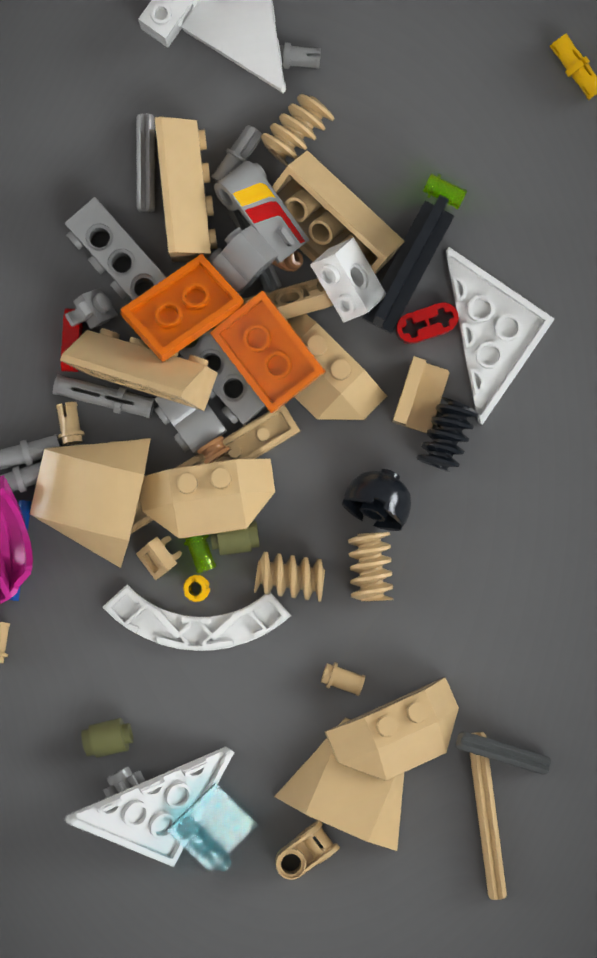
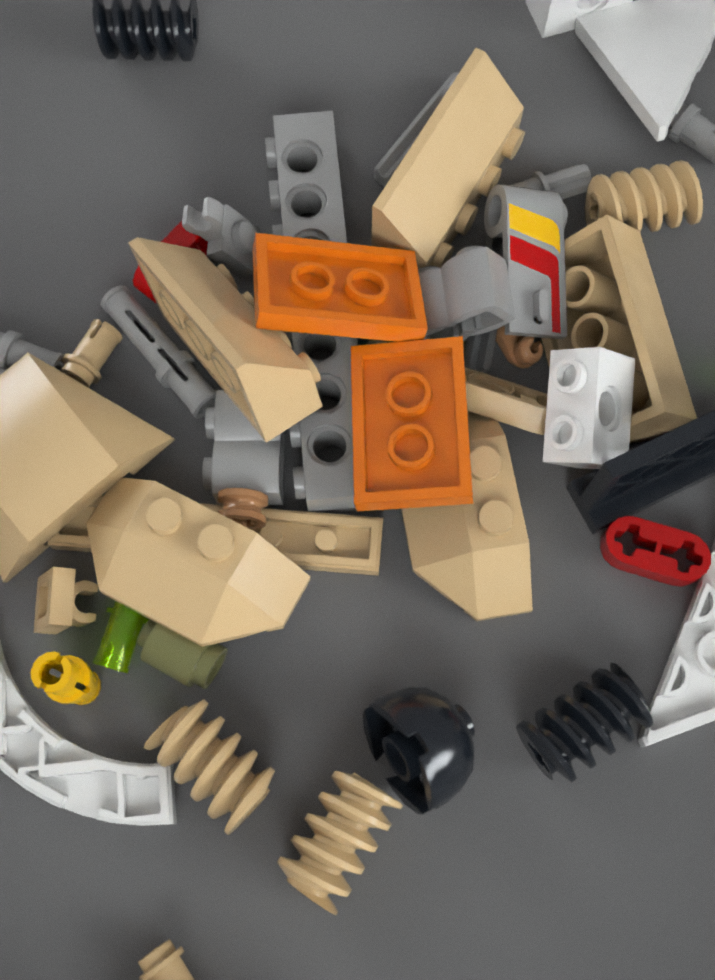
camera: 40 degrees right, 15 degrees down
(420, 395) = (580, 640): tan panel -> none

